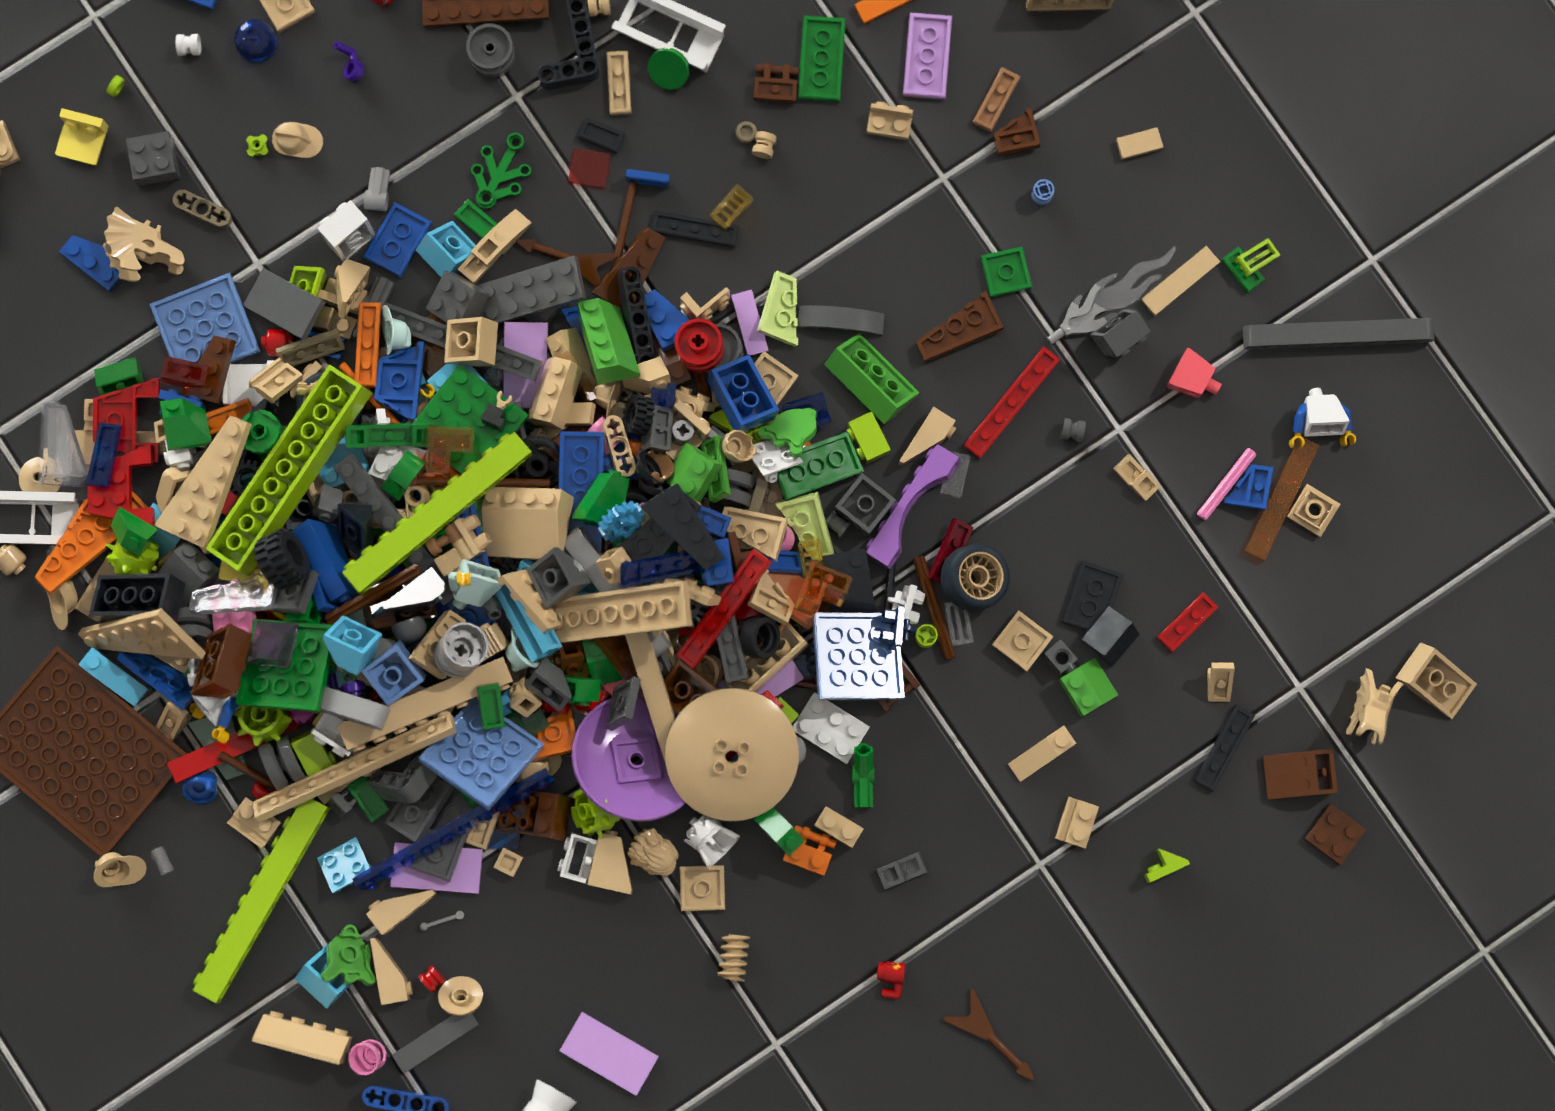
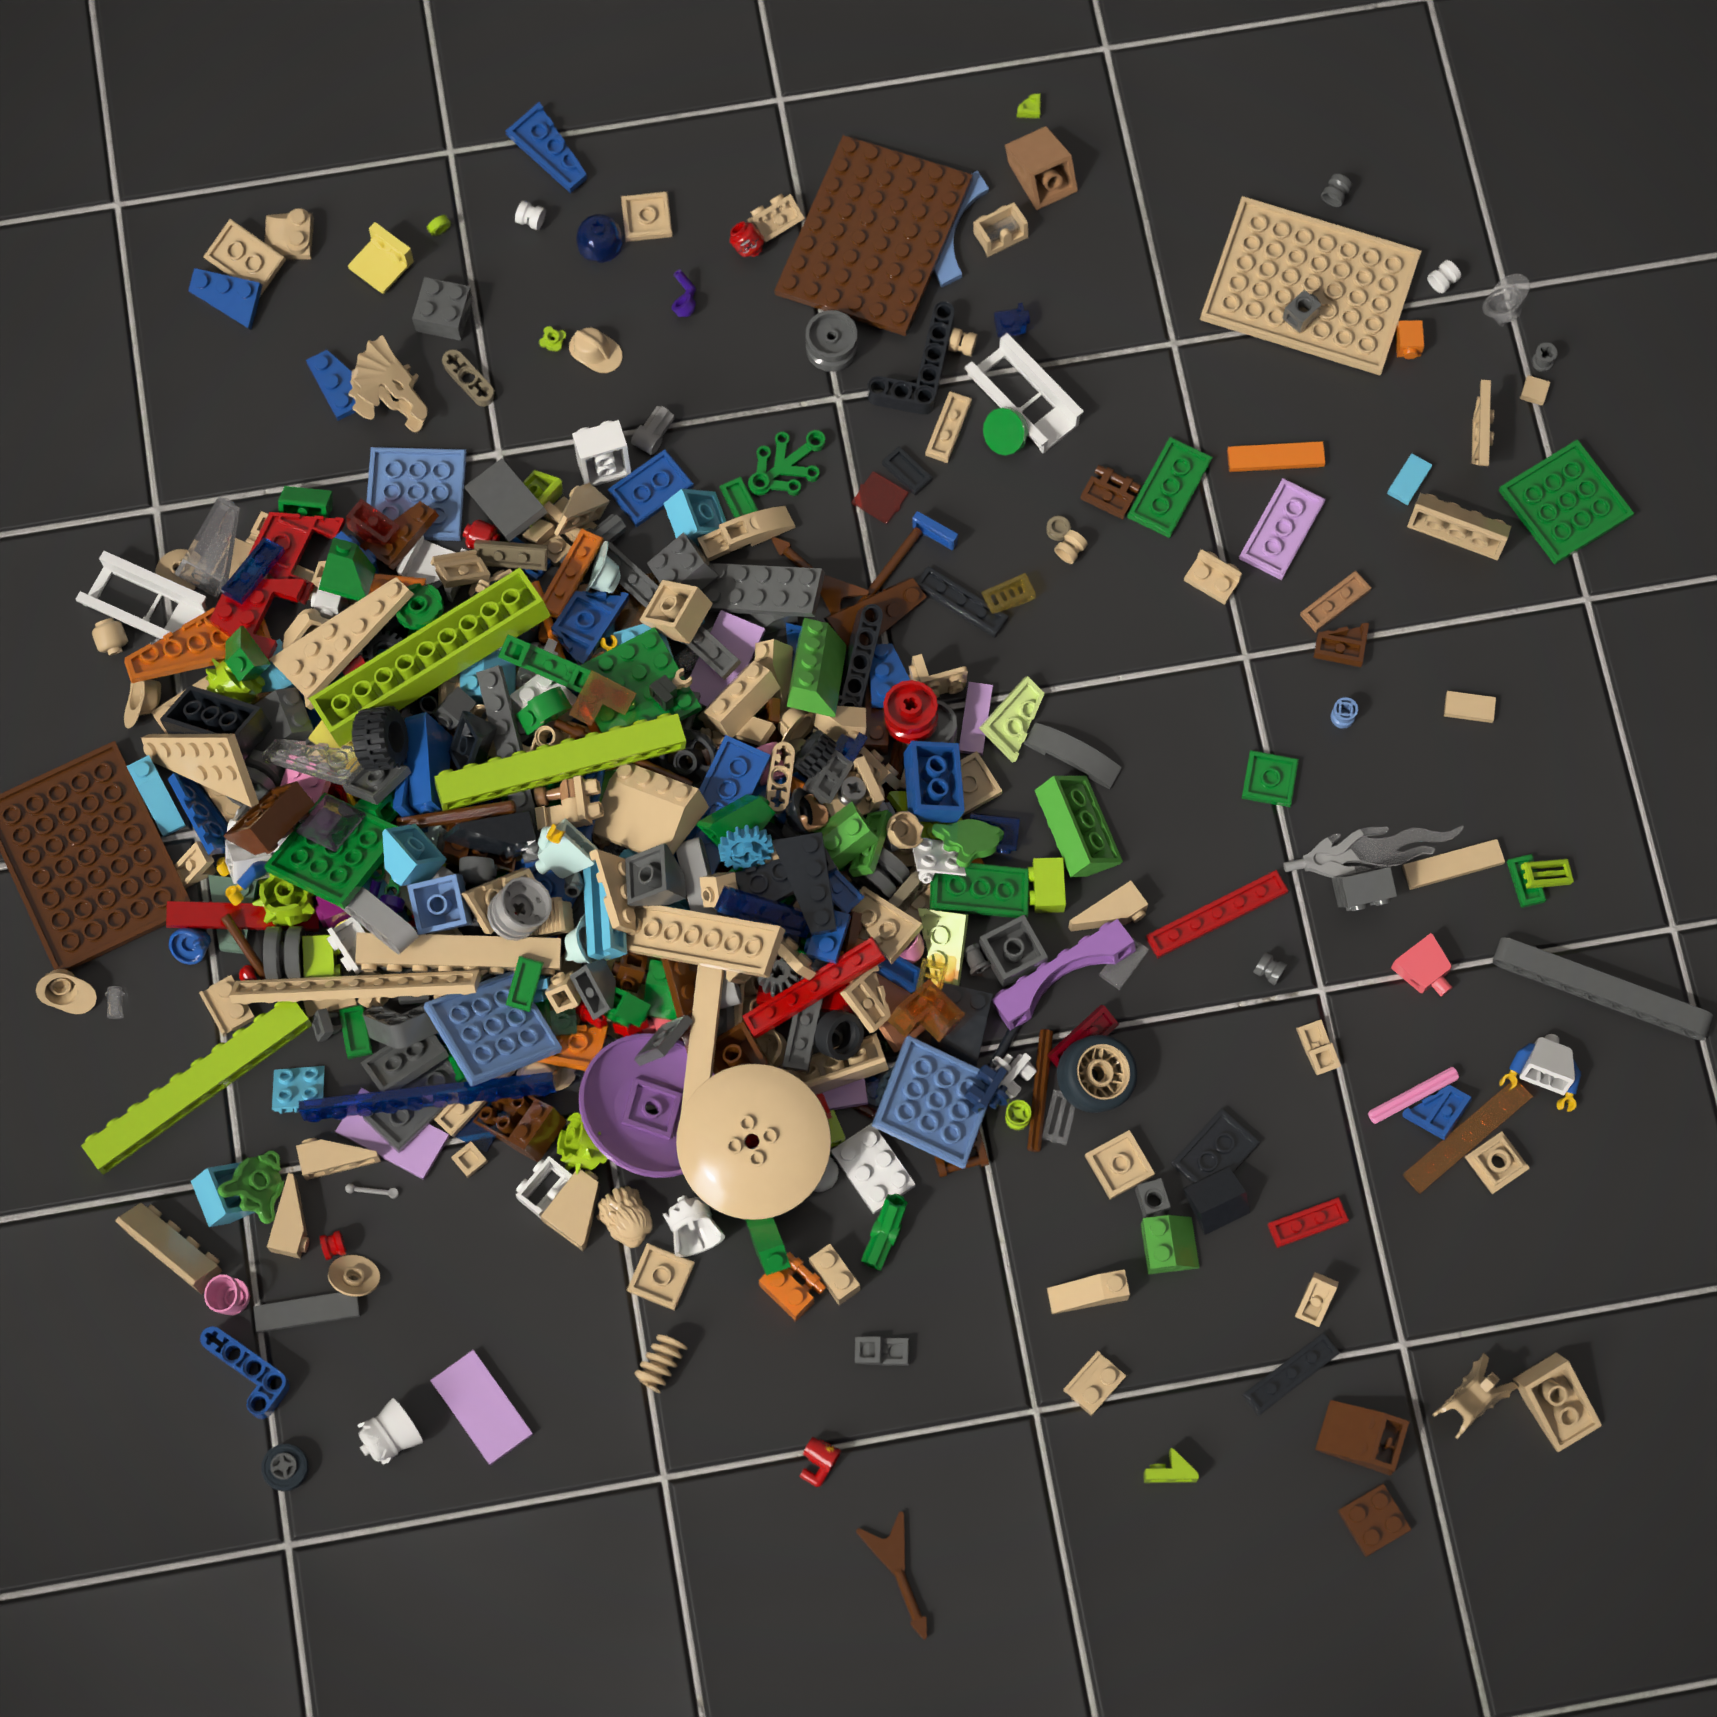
camera: 25 degrees right, 10 degrees down
(969, 325) = (1201, 816): reddish brown wing -> none

